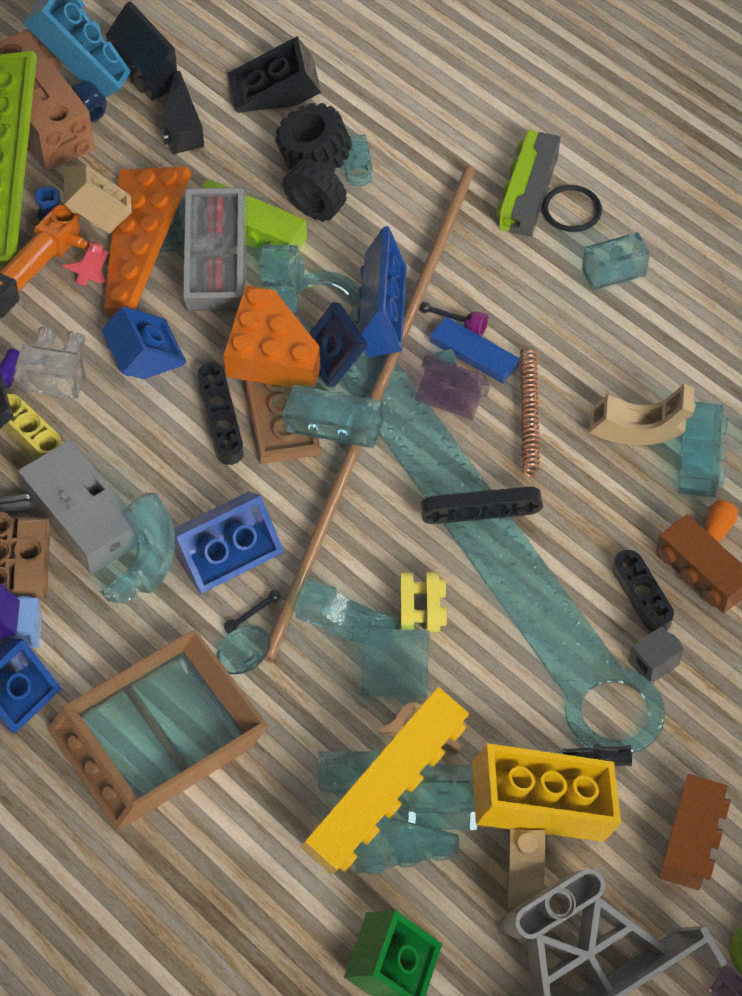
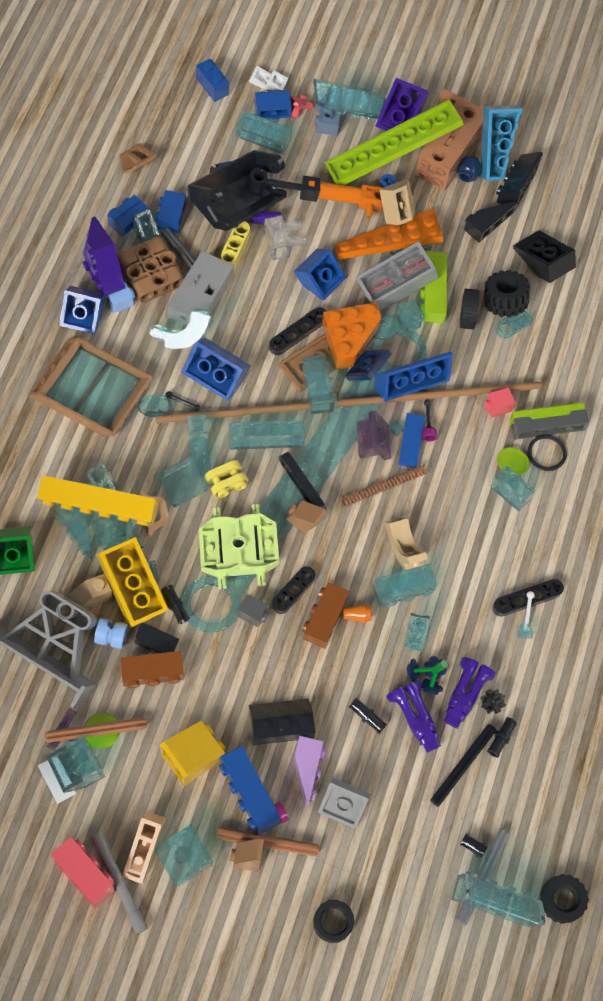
camera: 55 degrees right, 10 degrees up
(91, 265) = (359, 224): coral piece -> none
(377, 518) = (266, 435): none -> clear light blue brick
(472, 222) = (499, 402): none -> coral brick
(536, 594) = (242, 559): none -> yellowish green piece
(541, 518) = (305, 515): none -> medium nougat slope
(568, 246) = (514, 459): none -> lime piece
(614, 860) = (111, 633): none -> light blue wheel
(645, 810) = (155, 639): none -> black slope

